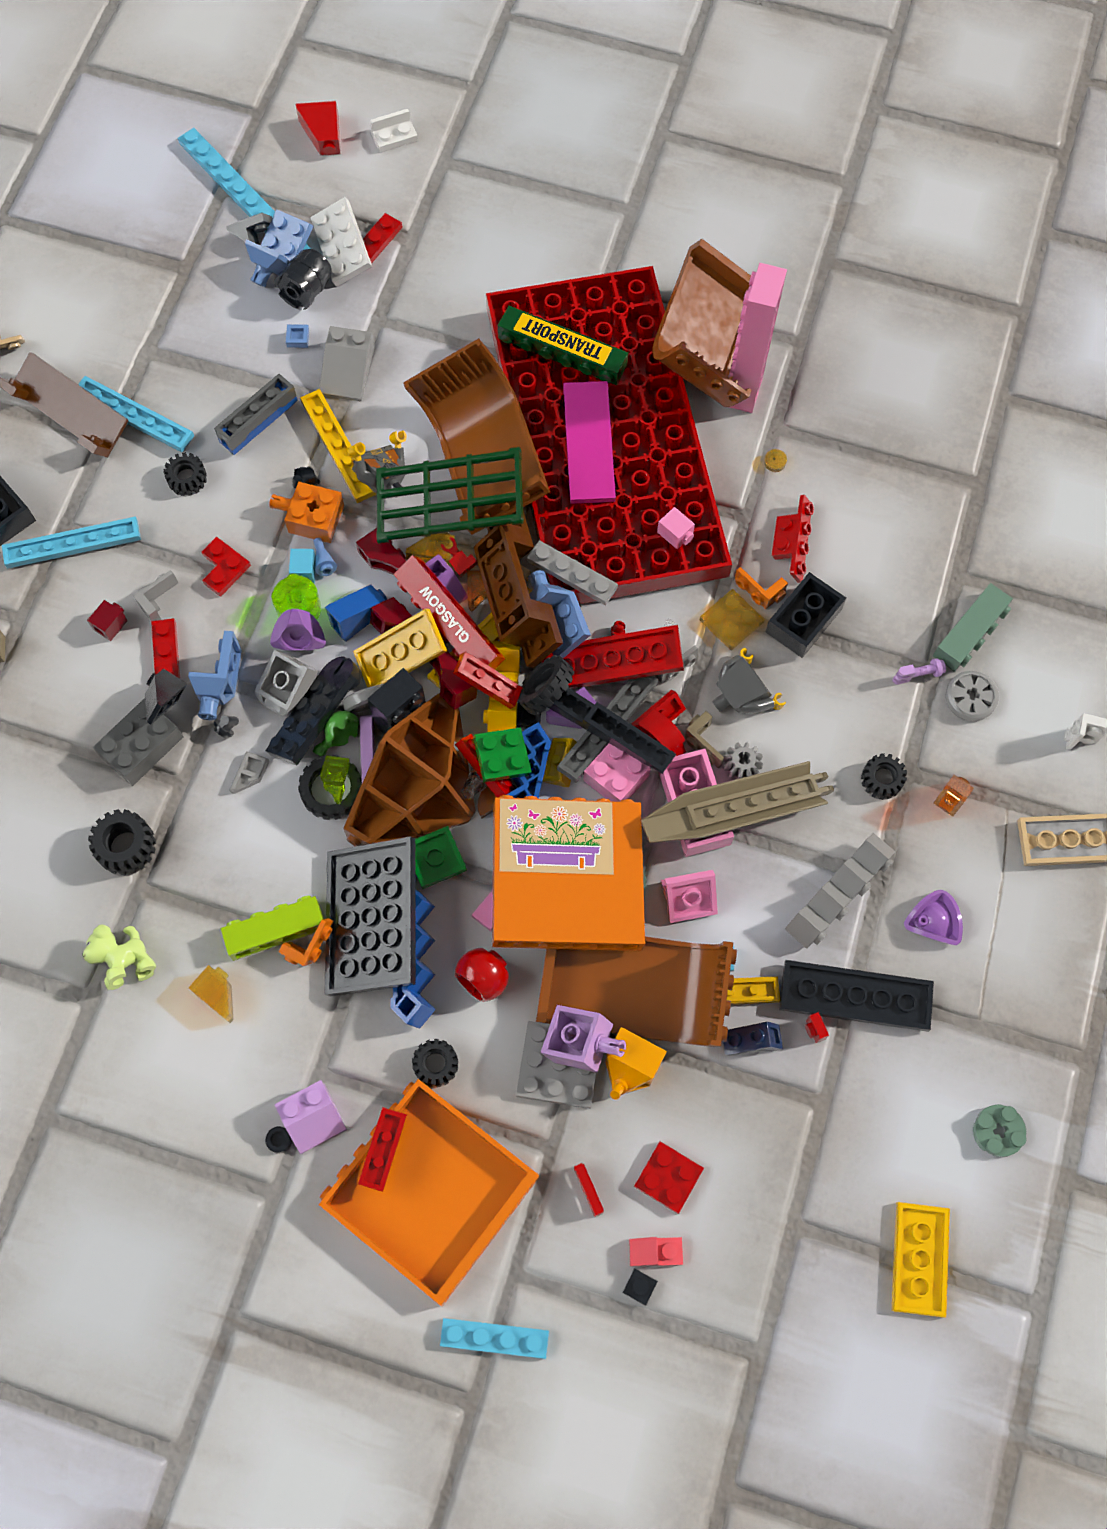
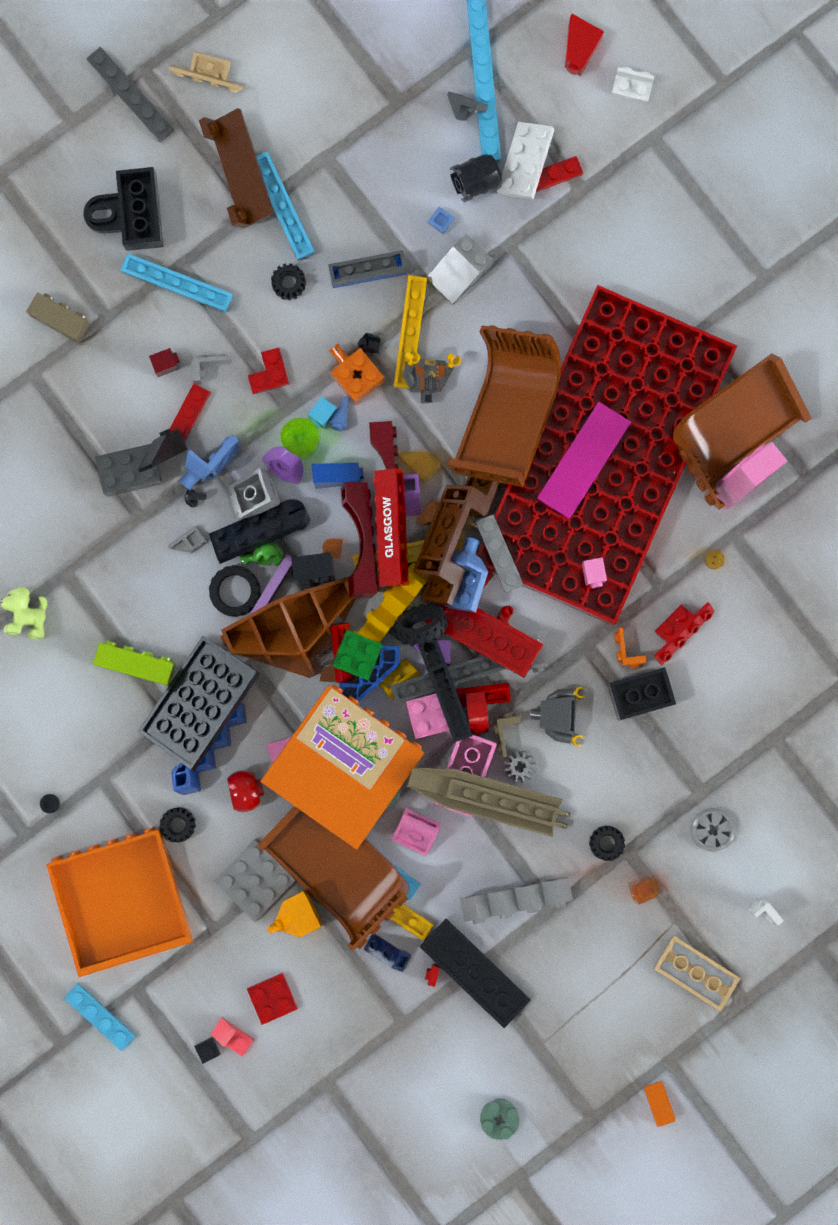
camera: 35 degrees right, 15 degrees up
(113, 826) = (60, 528): black tyre -> none
(215, 991) = (70, 681): clear yellow slope -> none
(281, 243) = (475, 136): medium blue plate -> none
(296, 954) = (139, 694): orange bracket -> none
(310, 1117) = (78, 804): lavender slope -> none
(334, 775) = (240, 588): clear neon green slope -> none
(358, 701) = (298, 546): light grey wheel -> none
(382, 1149) = (105, 859): red plate -> none
(401, 647) = (342, 528): yellow tile -> none
(437, 858) = (270, 689): green plate -> none
(459, 560) = (431, 489): red piece -> none
(471, 502) = (460, 456): dark green door -> none
(487, 680) = (383, 596): plate -> none
(562, 345) = (619, 371): dark green brick -> none
(580, 1039) = (273, 879): lavender brick -> none
(588, 1189) = (216, 972): red tile -> none
(731, 619) = (591, 658): clear yellow plate -> none
(906, 673) = (704, 793): lavender hinge -> none
(920, 1260) = (389, 1157): yellow tile -> none
(937, 918) = (565, 961): medium lavender hat -> none
(972, 627) = (751, 783): sand green brick -> none

